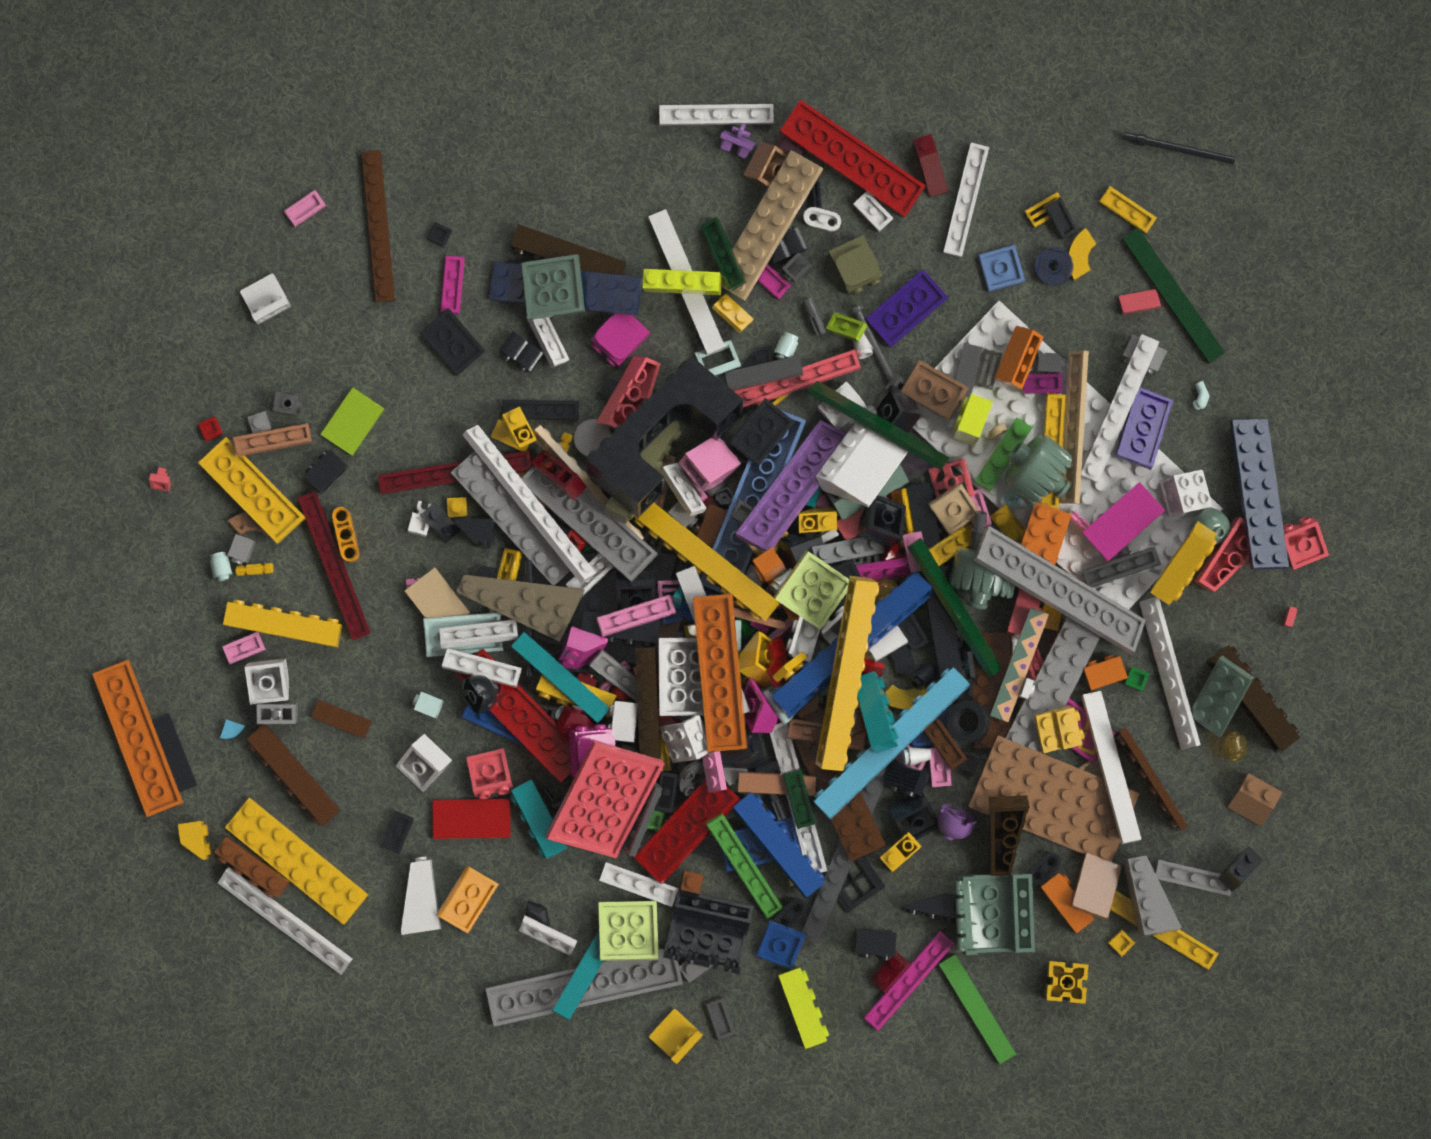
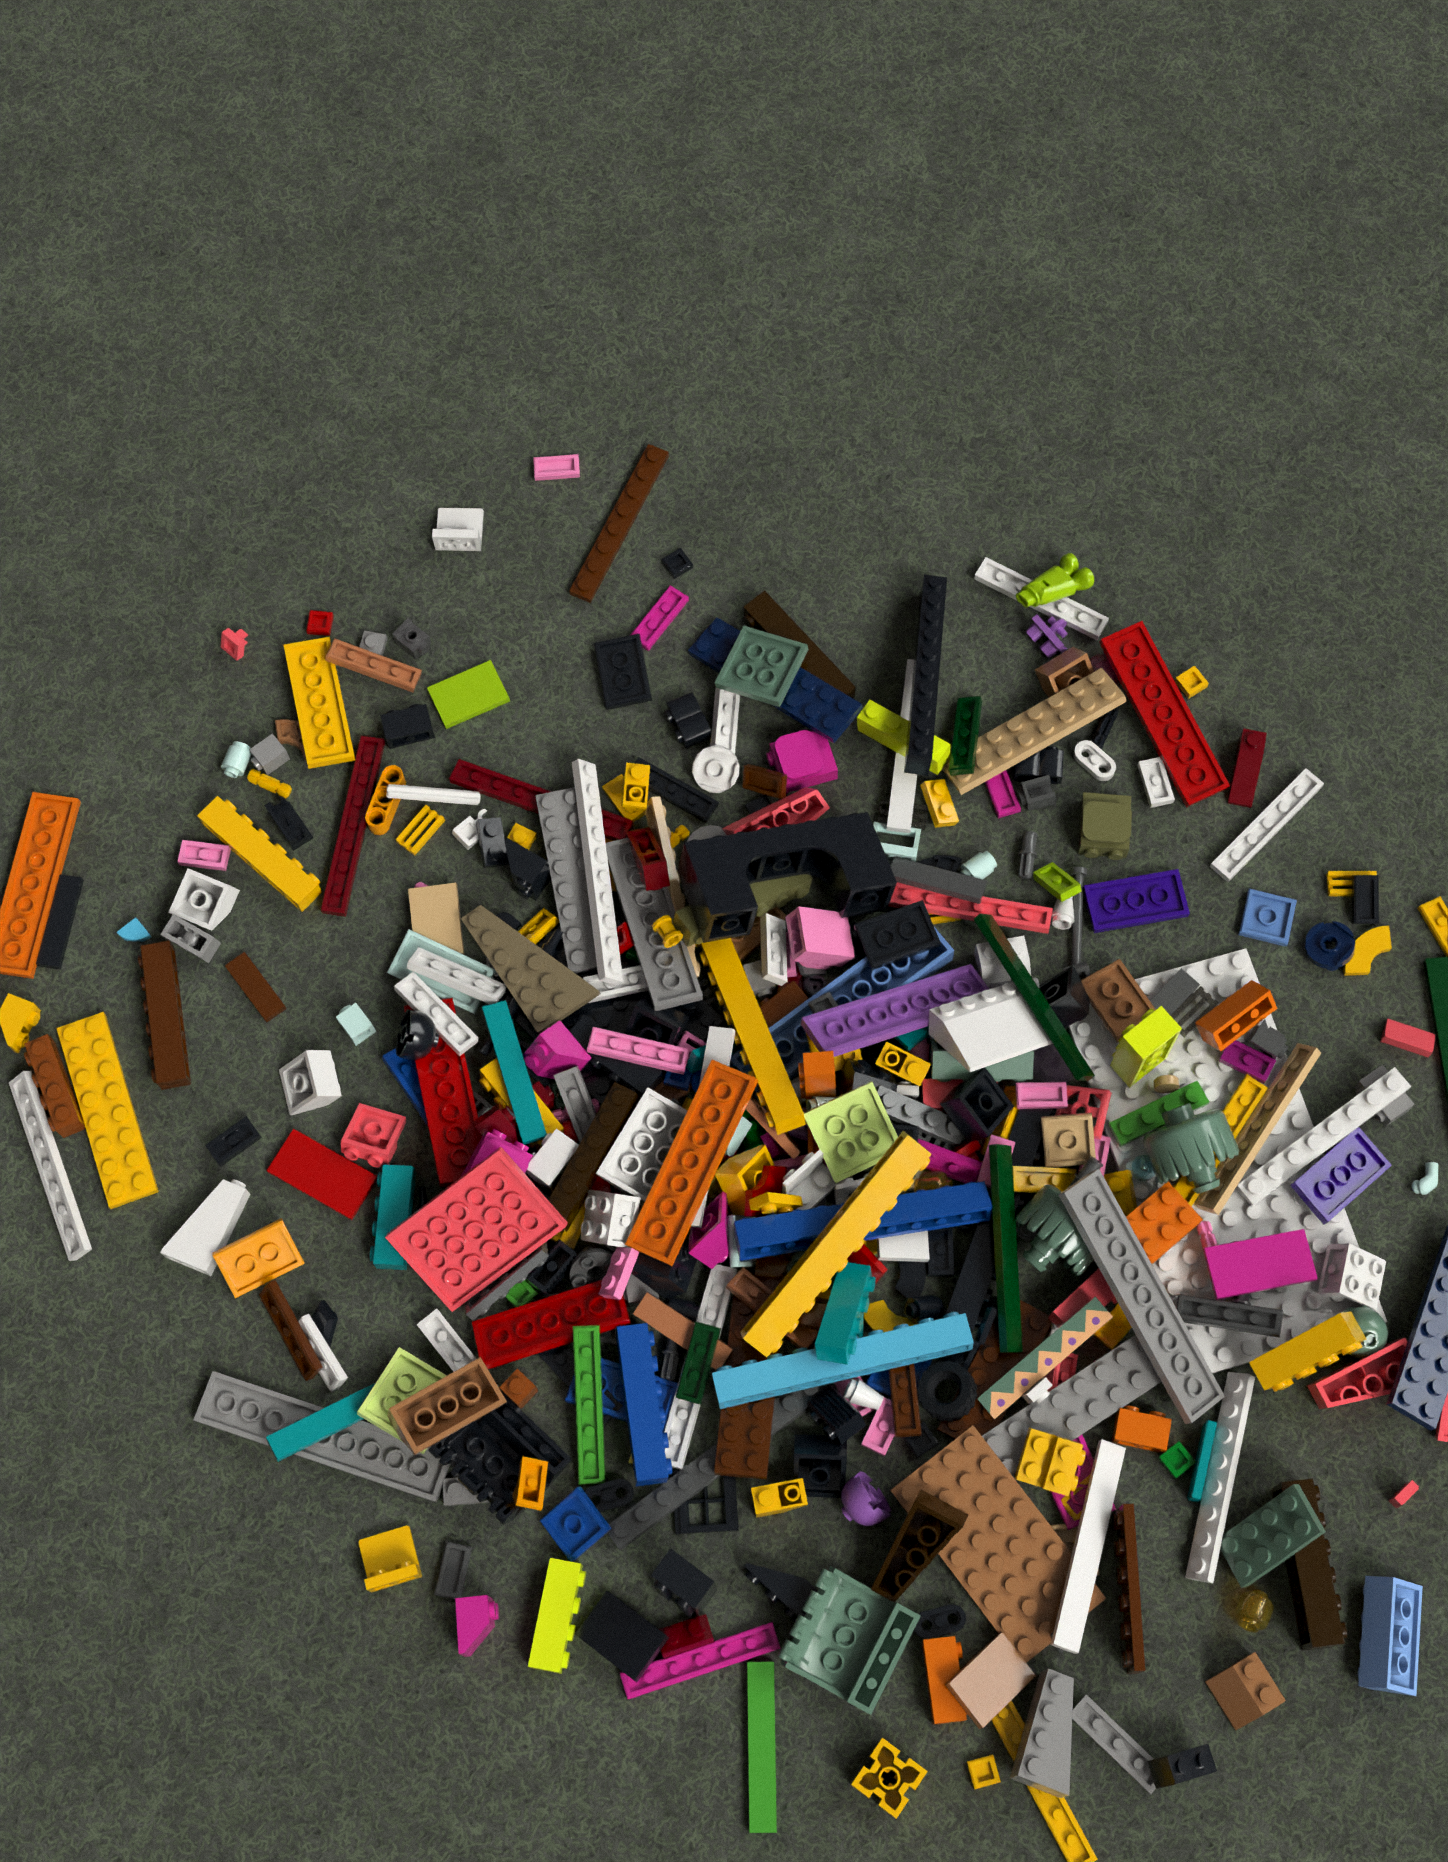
camera: 30 degrees right, 15 degrees down
(288, 590) = (289, 823): none -> black hinge
(375, 540) = (414, 823): none -> yellow tile
(377, 512) = (433, 794): none -> white axle
(519, 932) = (290, 1330): none -> reddish brown tile
(563, 378) = (715, 769): none -> white tile
(603, 369) = (764, 781): none -> reddish brown tile
(606, 522) = (667, 931): none -> yellow bush
(657, 923) = (446, 1406): none -> medium nougat slope
(672, 228) = (925, 676): none -> black brick
(721, 101) = (1056, 583): none -> lime piece
(741, 939) = (531, 1483): none -> light orange slope
(755, 1041) = (474, 1621): none -> dark pink slope
(852, 995) = (622, 1636): none -> black tile
(857, 120) = (1191, 682): none -> yellow plate
(920, 488) = (1041, 1095): none -> bright pink tile
(1153, 670) = (1202, 1461): none -> teal tile
(1325, 712) = (1390, 1635): none -> light blue slope

